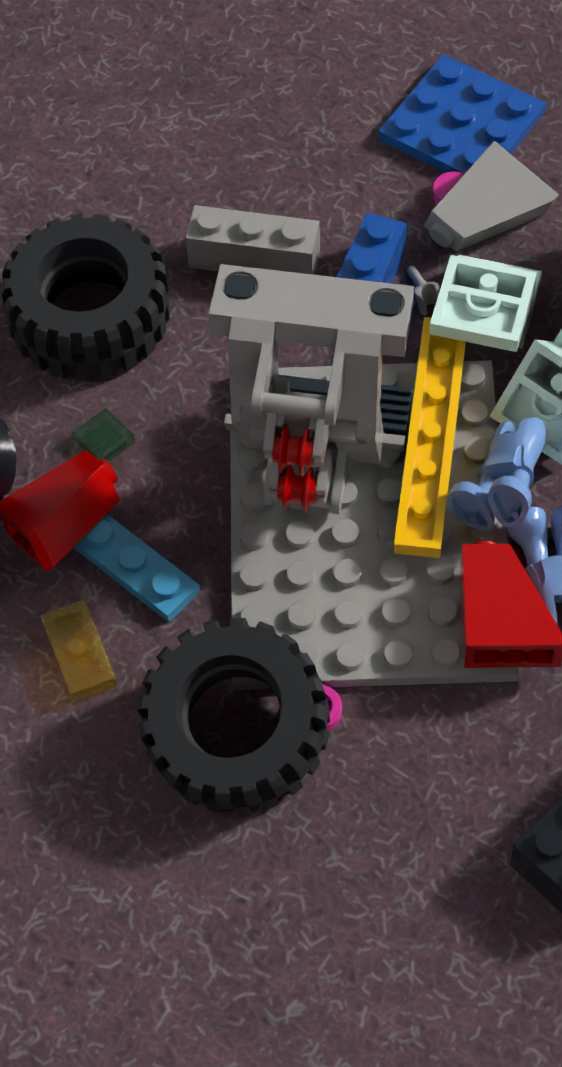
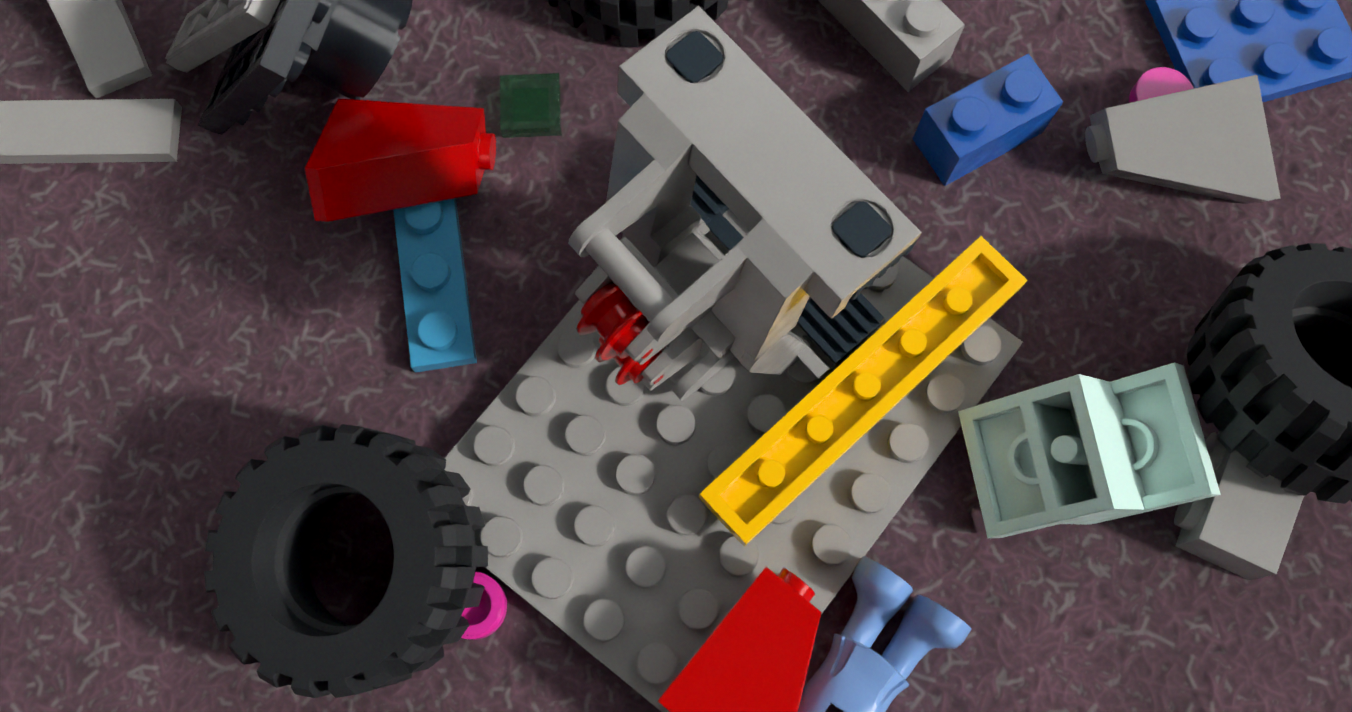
camera: 35 degrees right, 15 degrees up
(78, 650) = (290, 333): clear yellow plate -> none
(425, 292) = (1021, 198): light grey hand -> none
(485, 302) = (1069, 271): light aqua bracket -> none
(502, 478) = (915, 501): medium blue piece -> none

